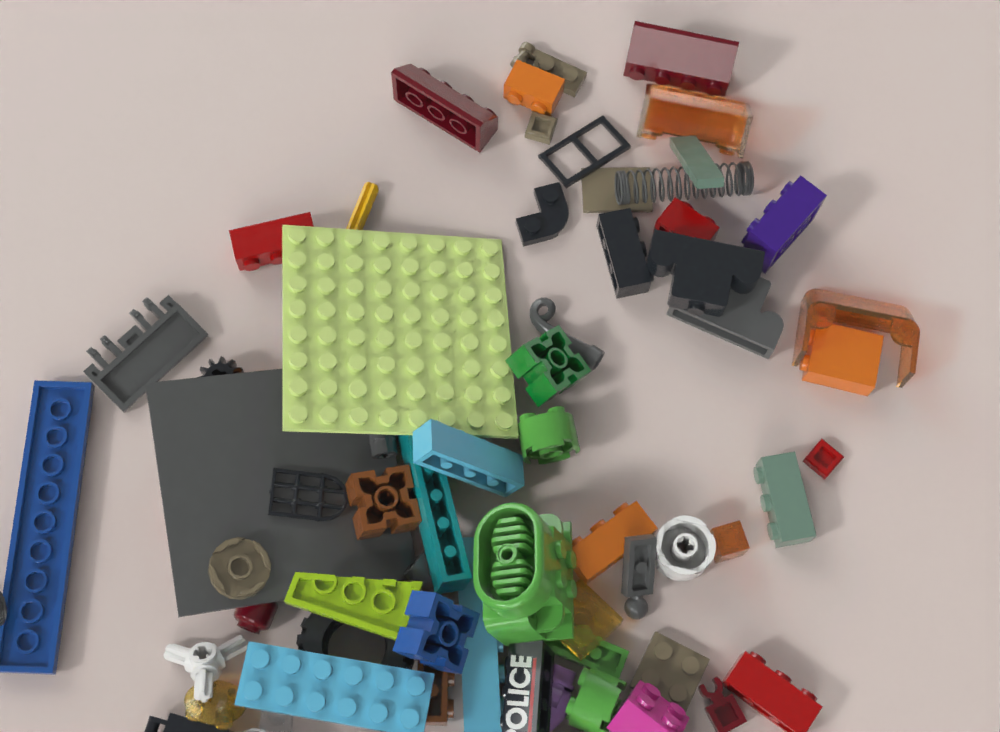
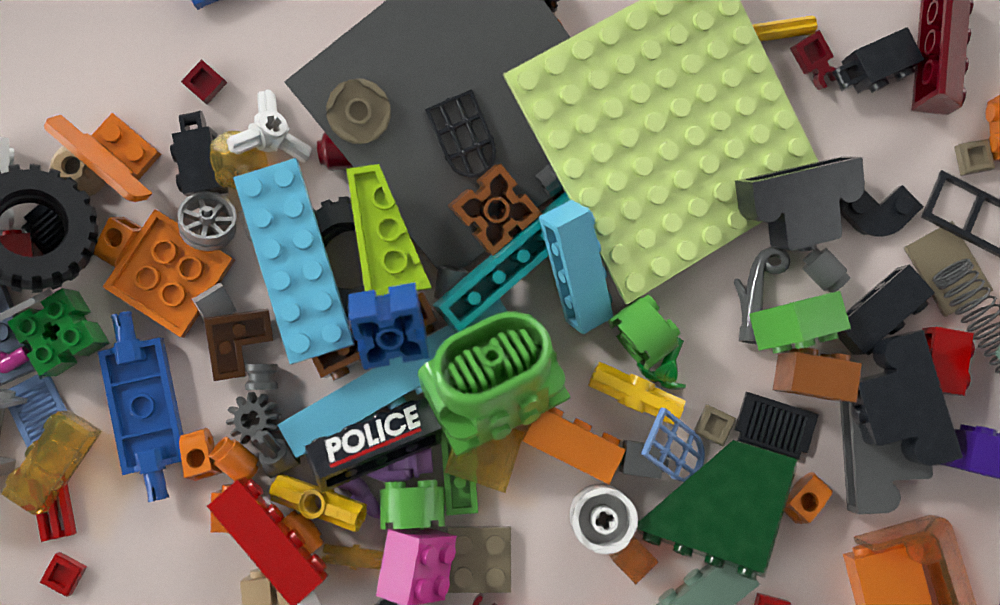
camera: 65 degrees right, 15 degrees up
(125, 700) = (204, 82): none -> dark red plate
(396, 198) = (812, 56): none -> dark red plate
(429, 155) = (878, 62): none -> black brick
(507, 264) = (802, 201): none -> black brick
(548, 365) = (717, 295): green brick -> none
(570, 276) = (826, 270): none -> dark grey brick
(590, 438) = (666, 372): none -> green plant
(594, 470) = (635, 392): none -> yellow piece
(602, 315) = (800, 323): none -> bright green brick
(638, 573) = (556, 486): dark grey plate -> none
(650, 325) = (816, 376): none -> dark orange brick
(651, 424) = (714, 425): none -> dark tan tile
(651, 491) = (636, 464): none -> dark grey brick
(652, 468) = (665, 451): none -> medium blue window
(675, 378) = (775, 426): none -> black window
(722, 447) = (726, 509): none -> dark green slope
(744, 384) = (807, 499): none -> orange leg

